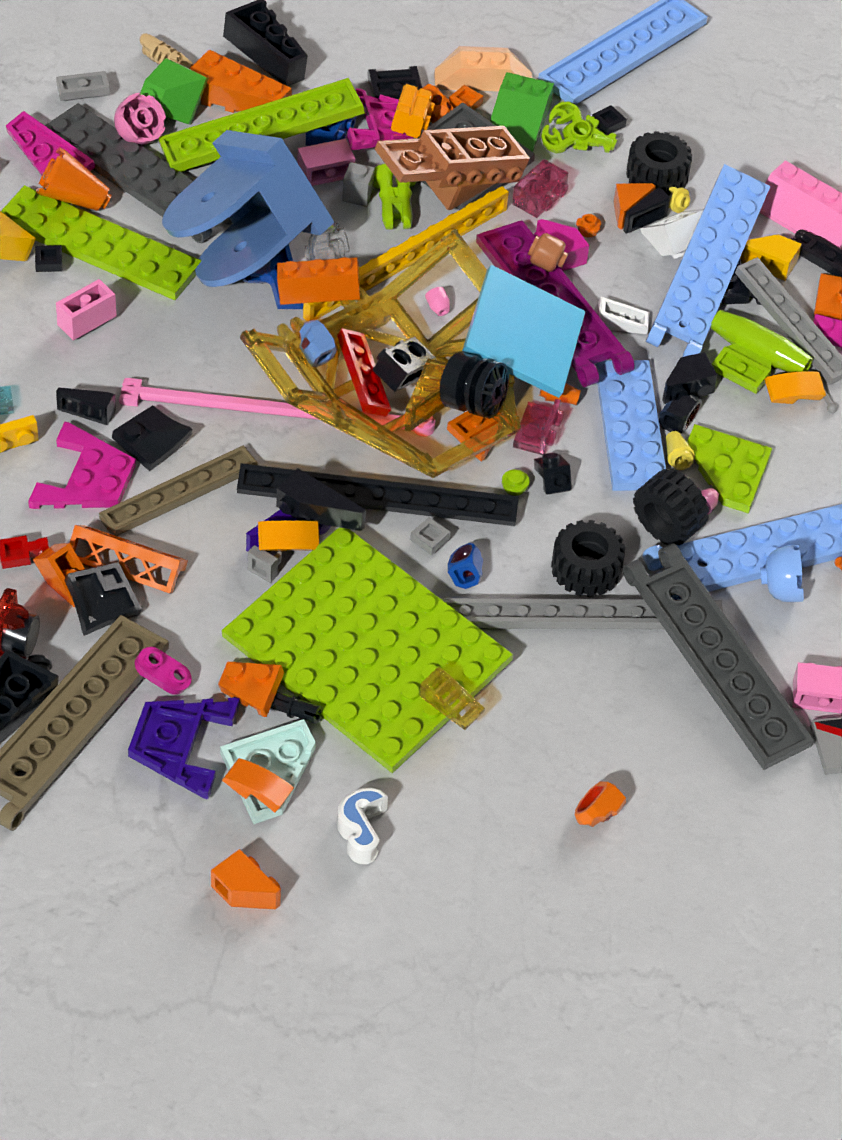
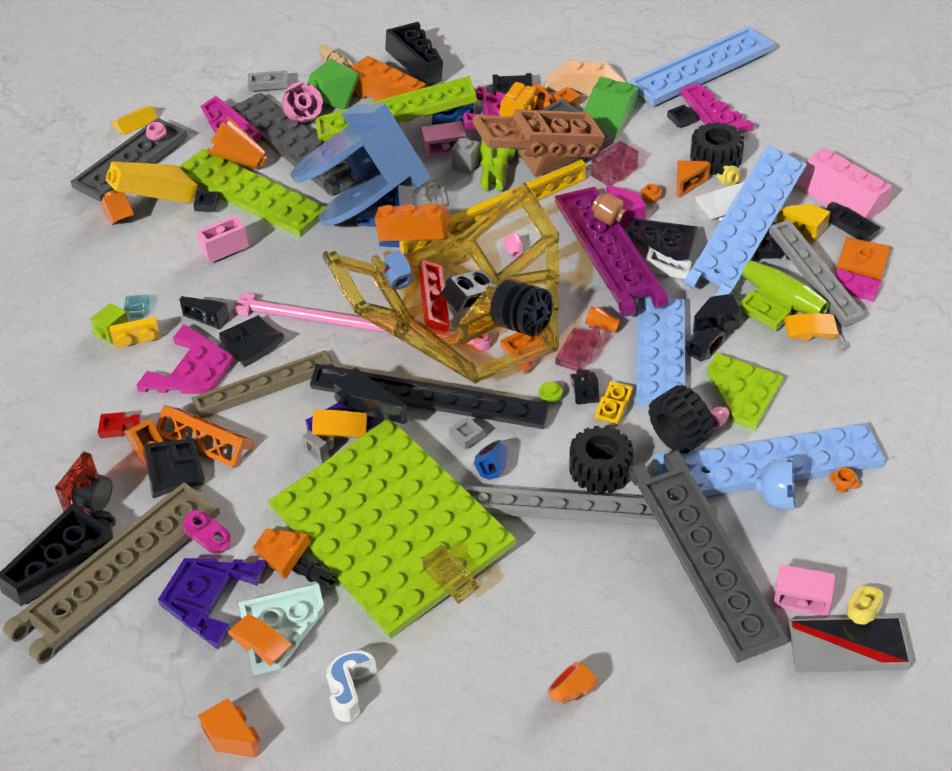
camera: 15 degrees right, 5 degrees down
(524, 330) = (574, 267): medium azure tile -> none
(577, 133) = (653, 125): lime animal -> none
(589, 491) = (614, 403): none -> yellow slope
(616, 283) = (666, 238): none -> black plate
(643, 112) = (712, 110): none -> dark pink wing
(647, 211) = (705, 181): black slope -> none
(678, 451) = (699, 375): light yellow cone -> none

